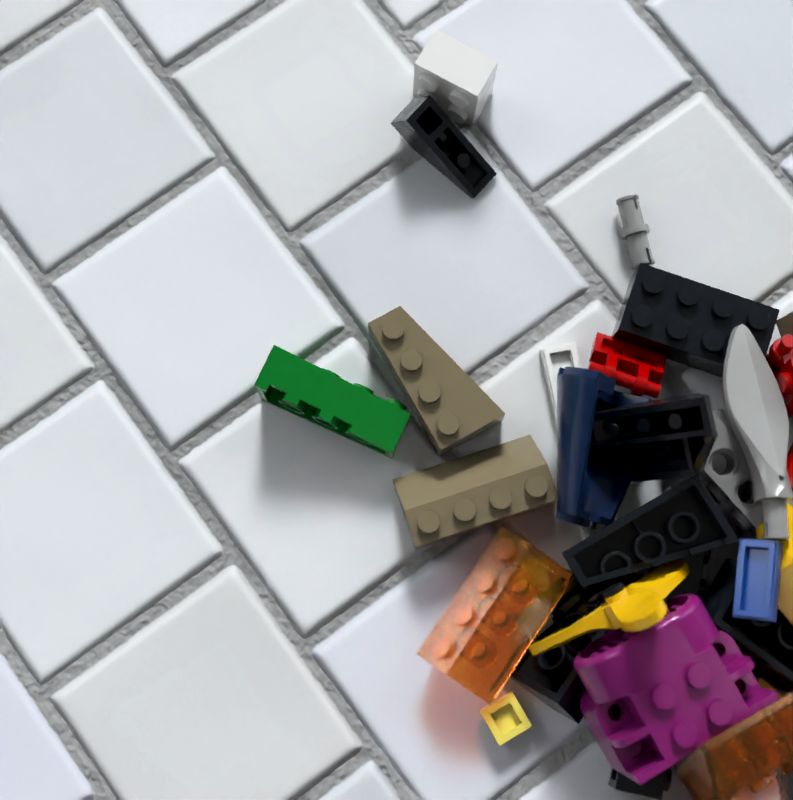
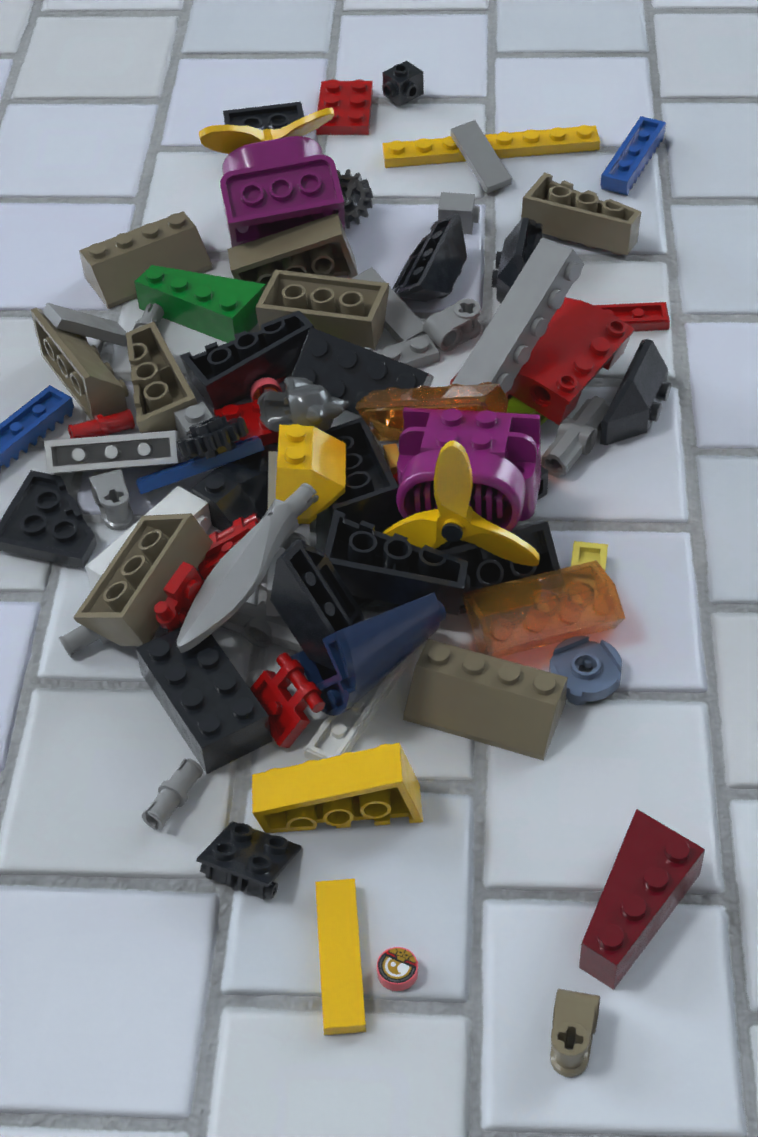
camera: 135 degrees left, 30 degrees down
(207, 267) = (573, 1027): none -> dark tan piece
(229, 406) = (639, 895): none -> dark red wedge
(332, 402) = (550, 830): green wedge -> none
(361, 225) = (397, 969): none -> tile
(408, 206) = (340, 957): none -> yellow tile
(412, 569) = (592, 685): none -> sand blue plate
(434, 385) = (452, 780): dark tan wedge -> none
(443, 145) = (262, 980): black slope -> none
(454, 77) = (201, 1012): white brick -> none
(513, 312) = (338, 791): none -> yellow wedge
(534, 225) = (247, 857): none -> black hinge
(757, 580) = (346, 483): blue tile -> none

